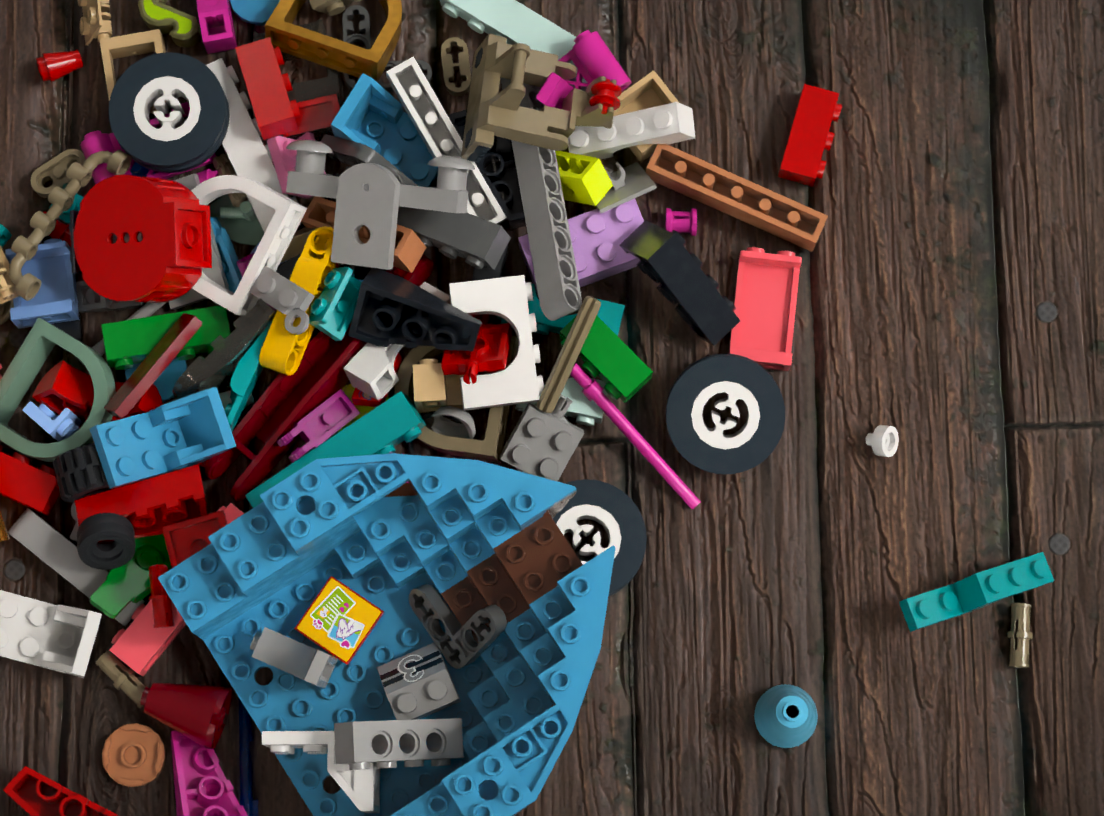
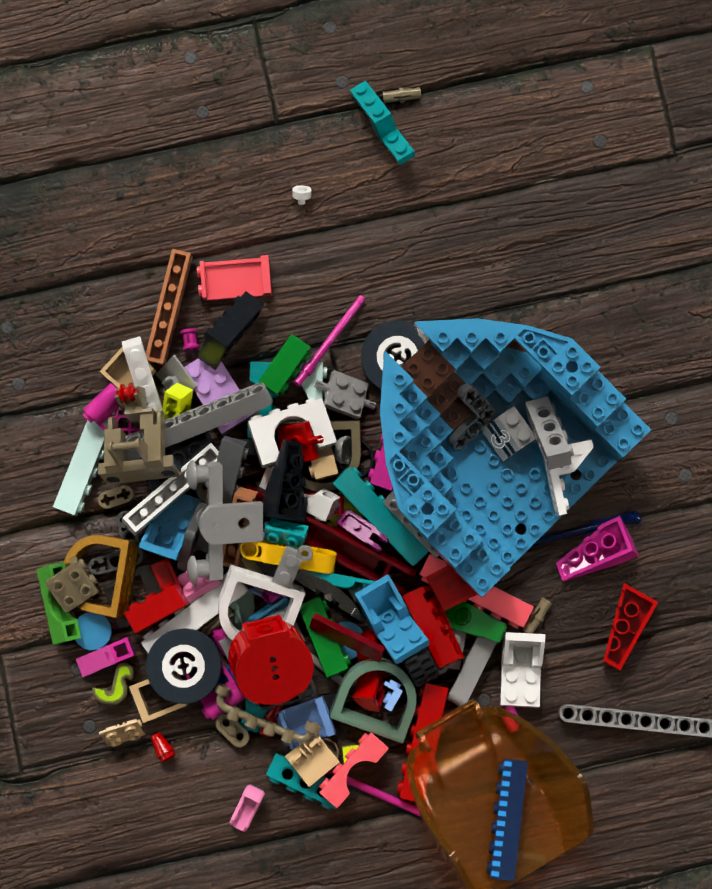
camera: 100 degrees left, 5 degrees up
(106, 527) = (460, 641): black tyre -> none
(134, 755) = (580, 601): nougat tile -> none
(160, 600) = (485, 602): red axle -> none
(189, 709) = (548, 571): dark red cone -> none
(293, 657) = (509, 508): light grey arch -> none
(339, 620) = (480, 489): tile -> none
(554, 91) = (128, 426): dark pink tile -> none
(568, 354) = (291, 385): dark tan axle -> none
(709, 447) = (286, 291): black wheel -> none
(774, 722) = (476, 222): medium azure cone -> none
(810, 135) = (120, 271): red brick -> none

